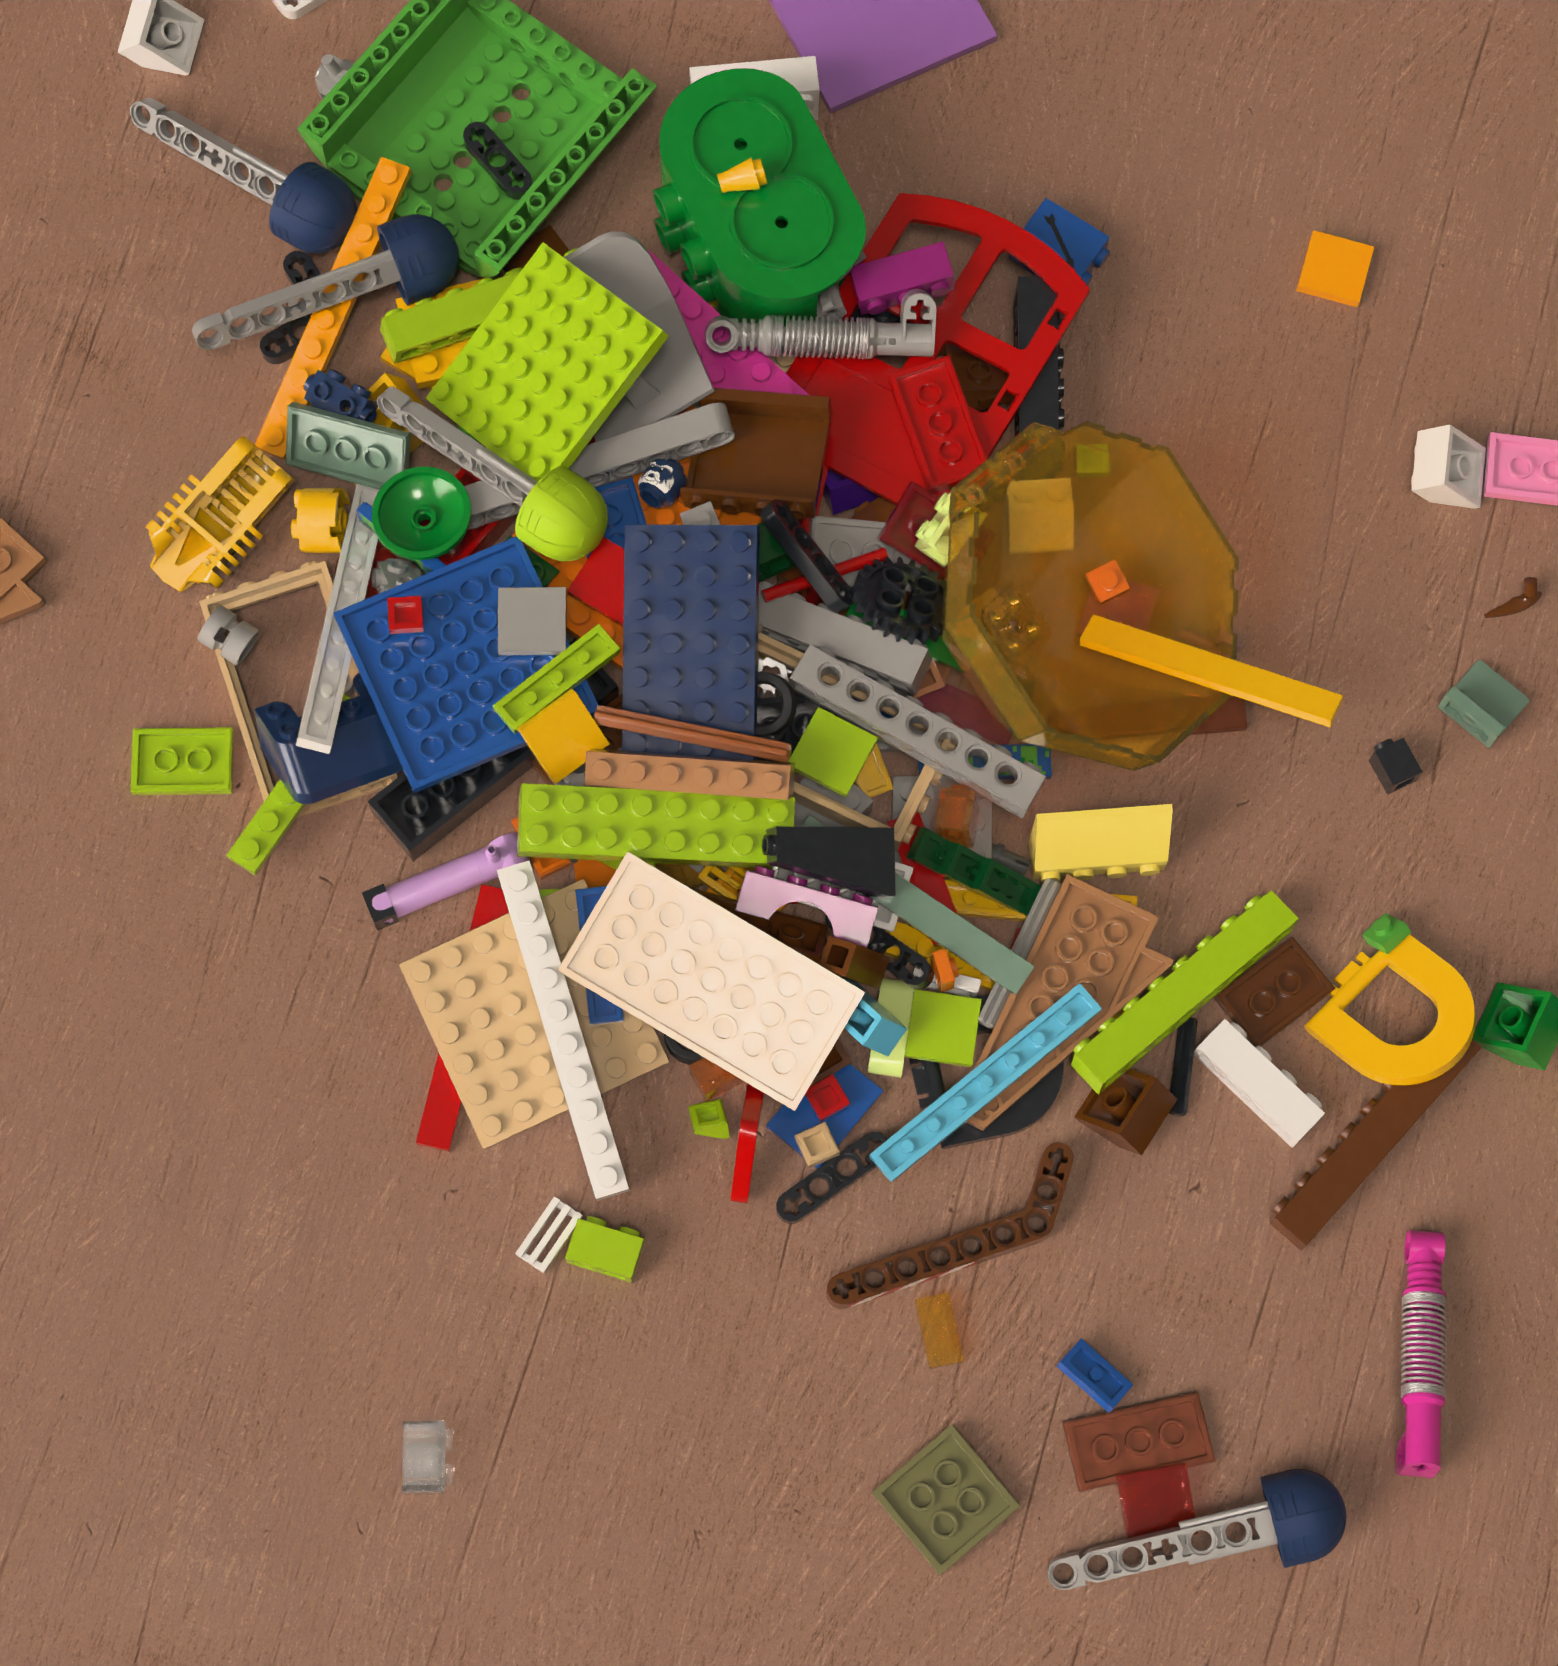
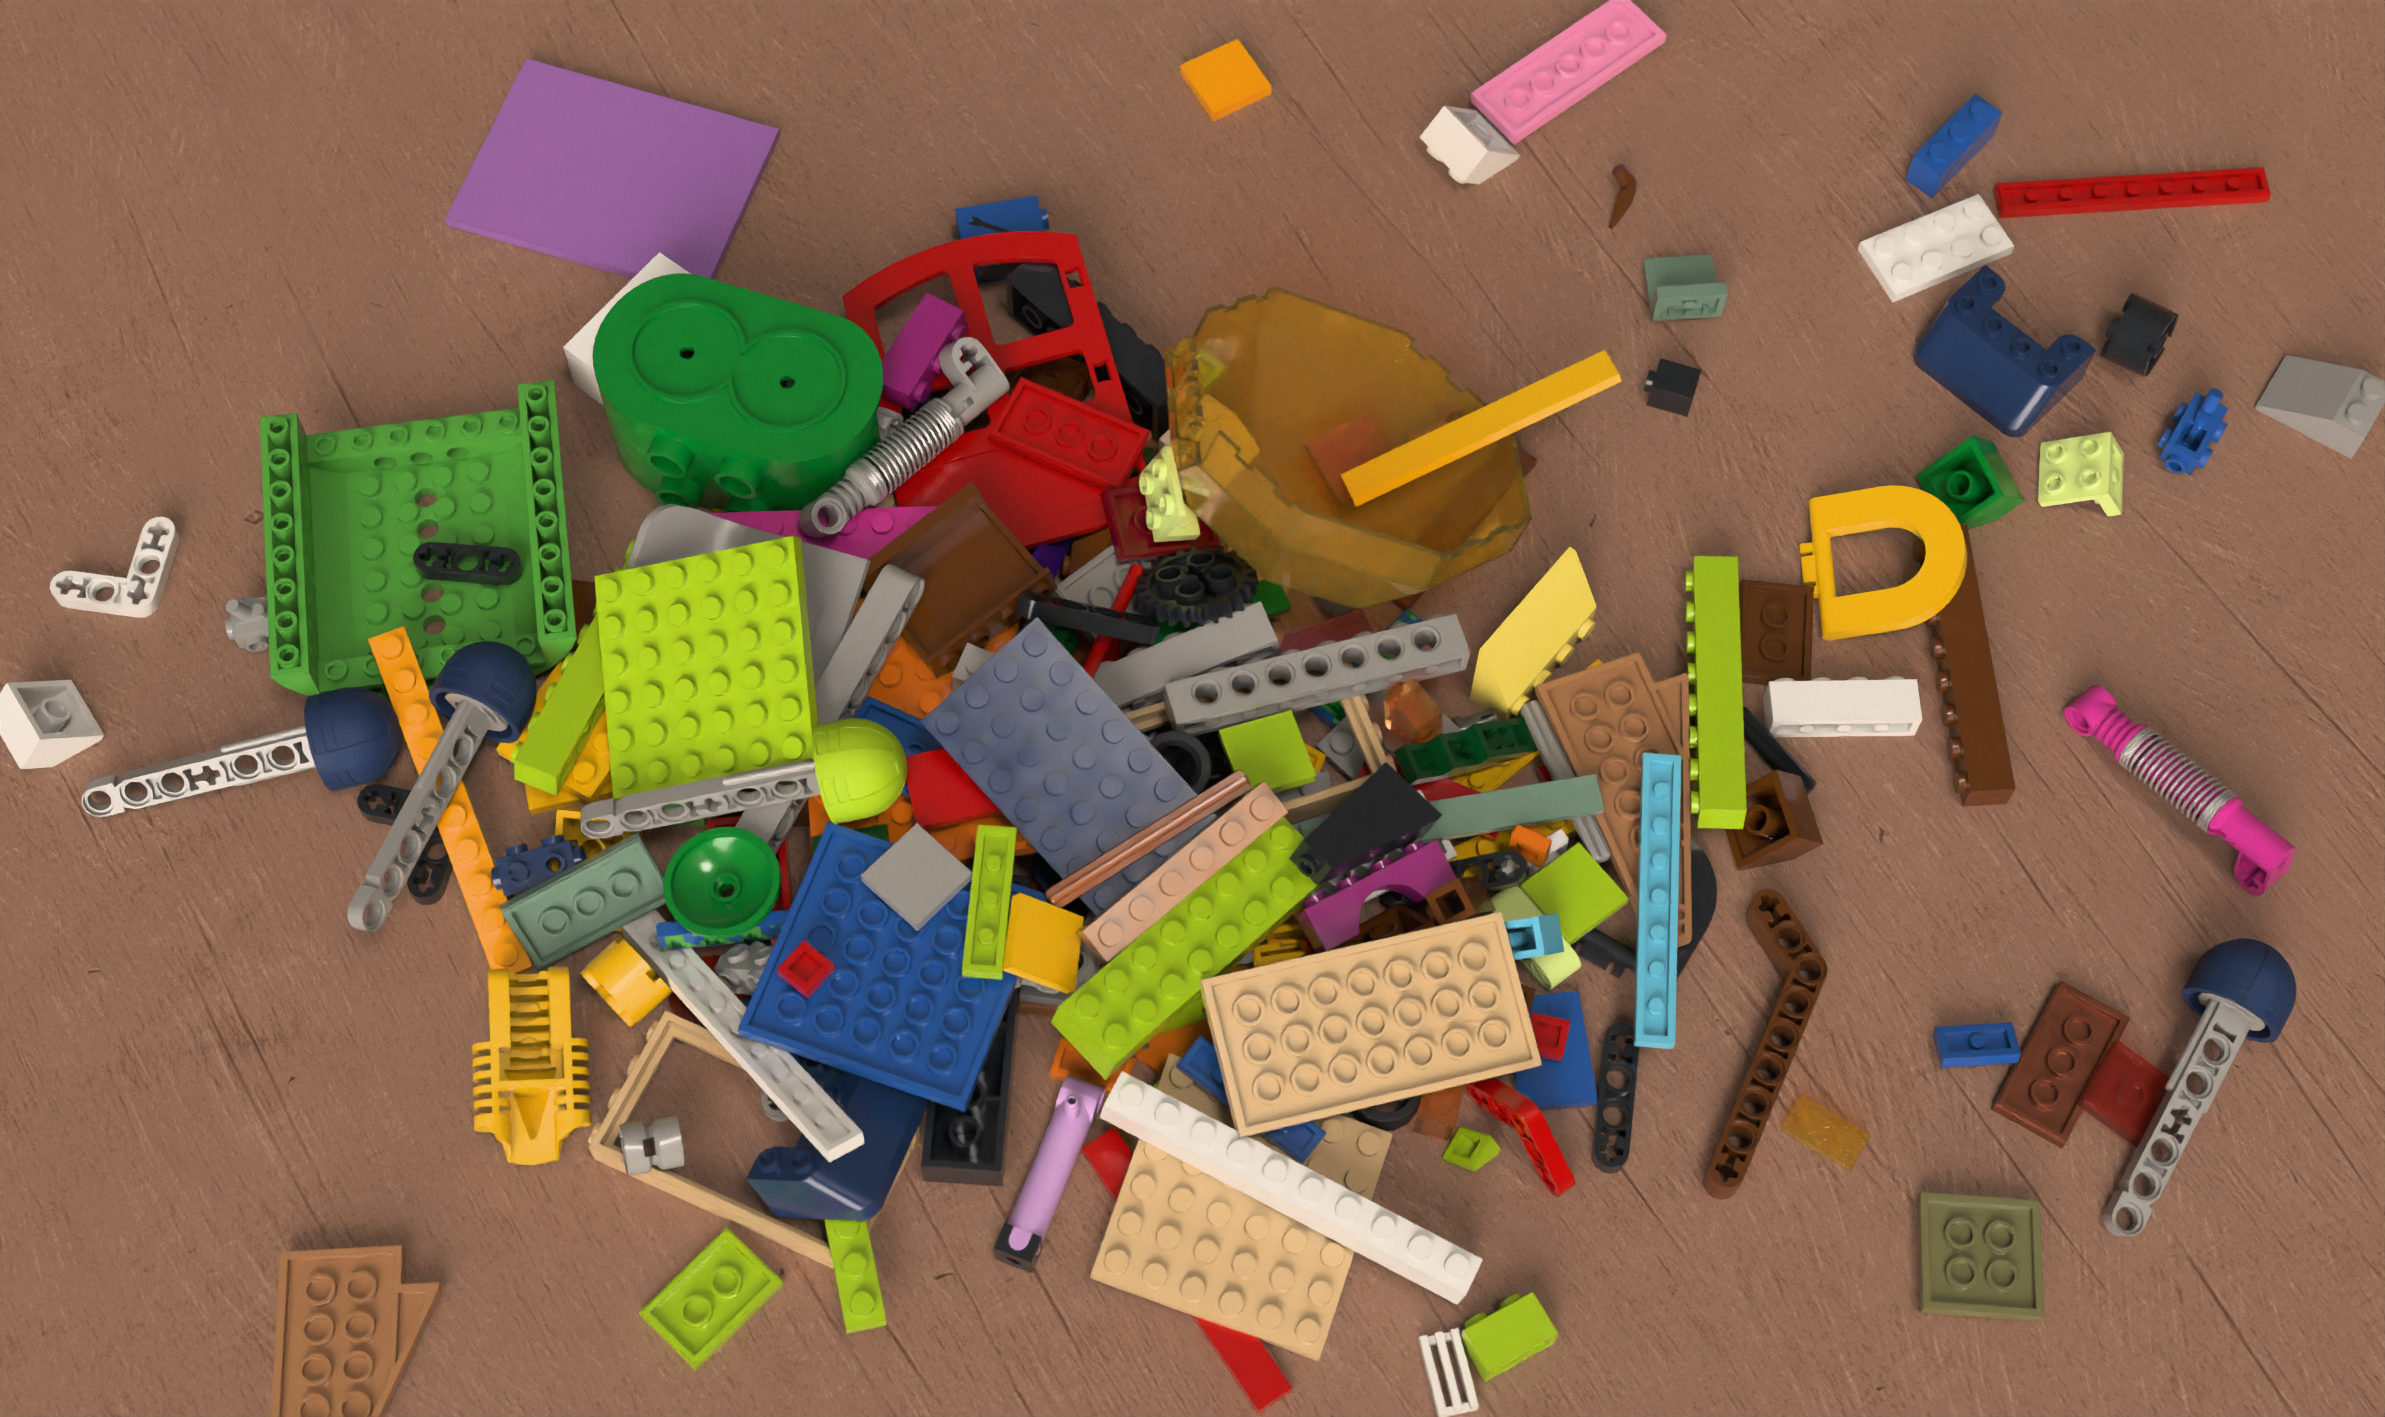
camera: 45 degrees left, 10 degrees down
(662, 482) = (902, 673): dark blue head -> none
(744, 176) = (722, 369): yellow cone -> none
(817, 1145) = (1578, 1082): tan tile -> none
(1107, 582) = (1324, 441): orange plate -> none
(1386, 933) = (1805, 512): bright green plate -> none

